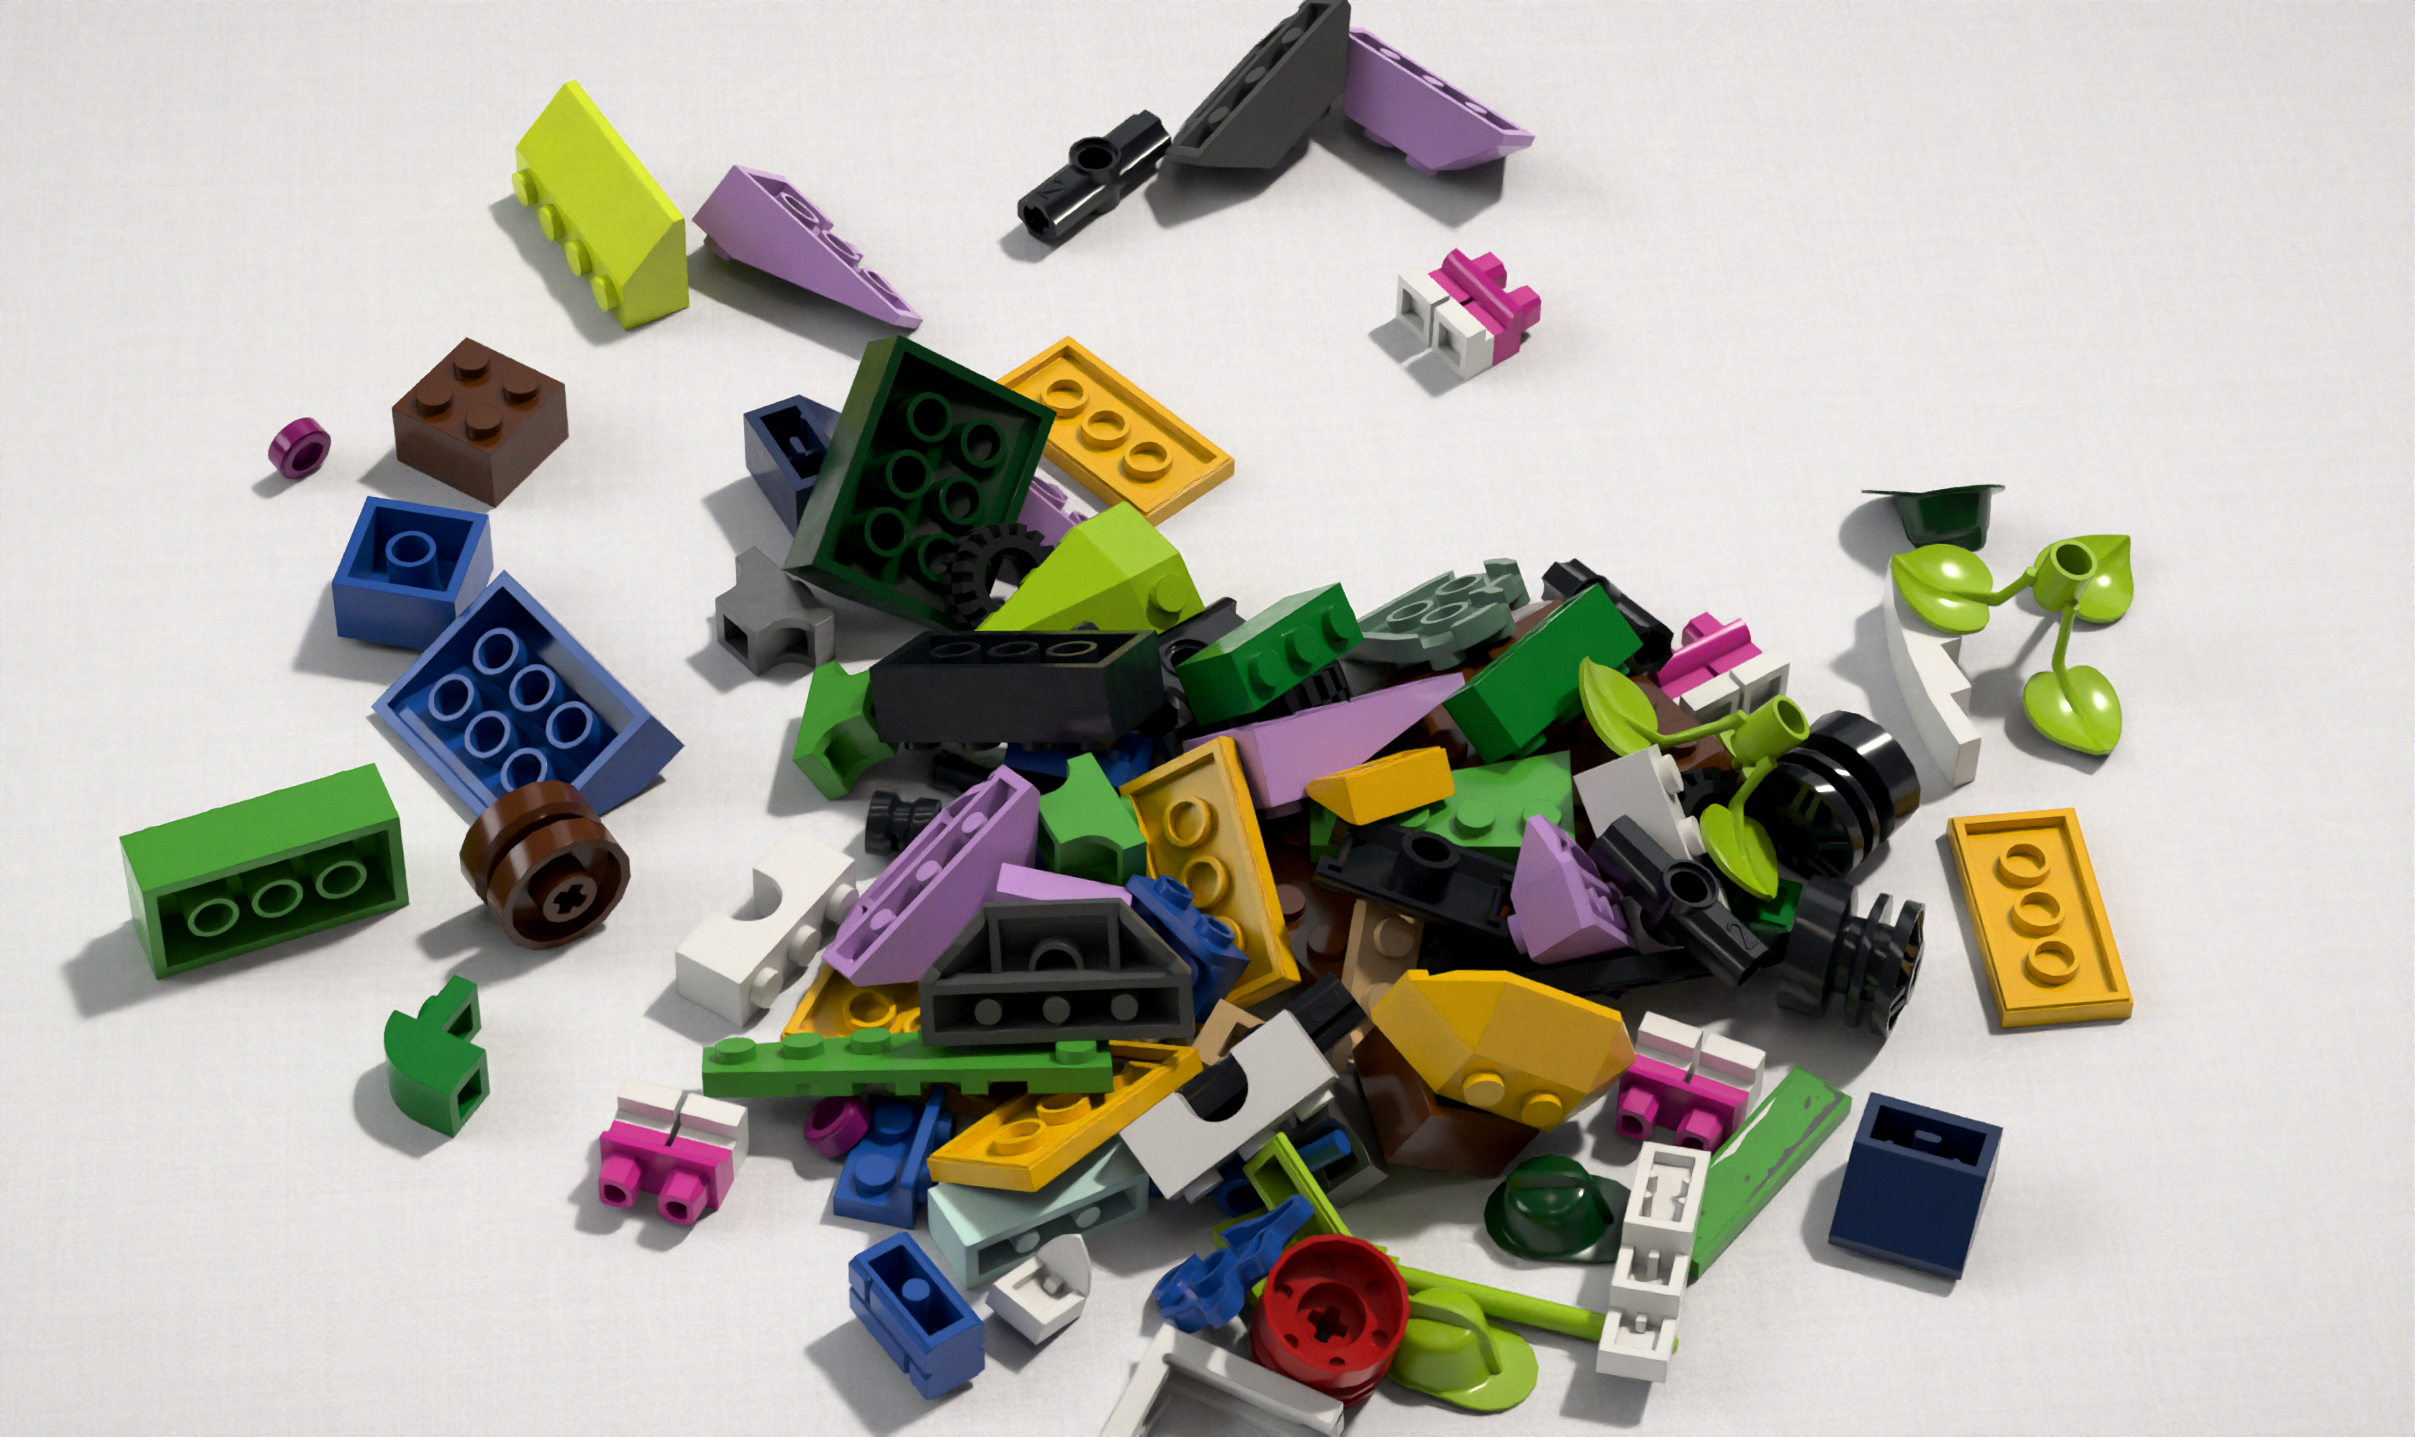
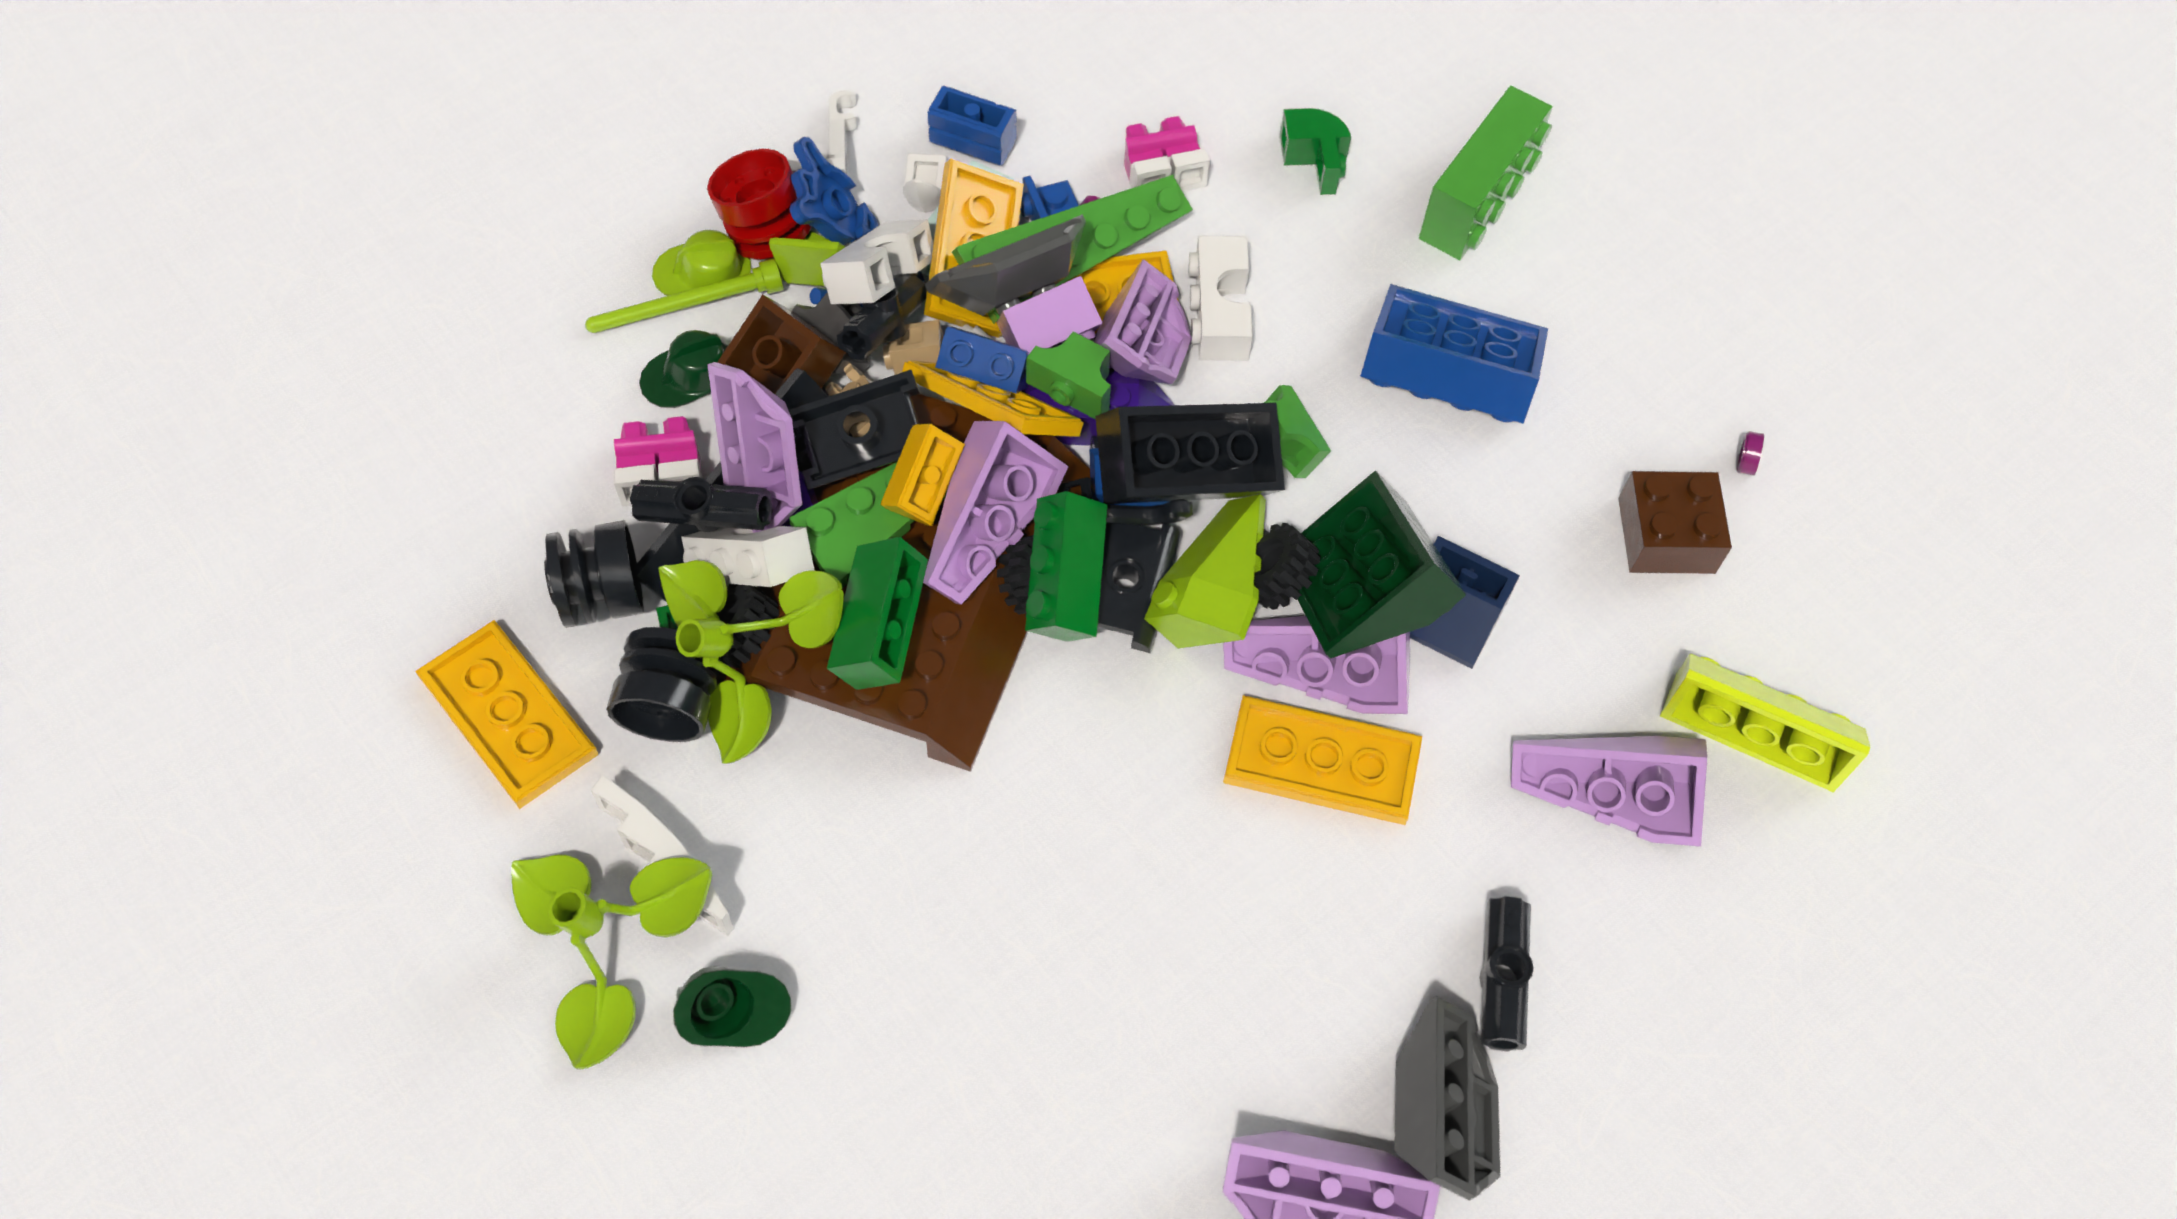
camera: 145 degrees right, 15 degrees up
(410, 572) = (1598, 388): blue brick -> none
(544, 865) = (1353, 243): reddish brown wheel -> none
(772, 618) = (1404, 476): flat silver brick -> none
(896, 823) = (1208, 389): black wheel -> none
(1443, 618) = (999, 690): sand green plate -> none
(1466, 311) = (1142, 1000): hips -> none
(1506, 1043) = (750, 338): yellow wedge -> none
(1572, 577) = (890, 750): black piece -> none
(1653, 1262) = (615, 340): white slope -> none
(1720, 671) = (798, 762): hips -> none
(1763, 1158) = (594, 458): bright green tile -> none
(1916, 1185) = (489, 466): dark blue slope -> none

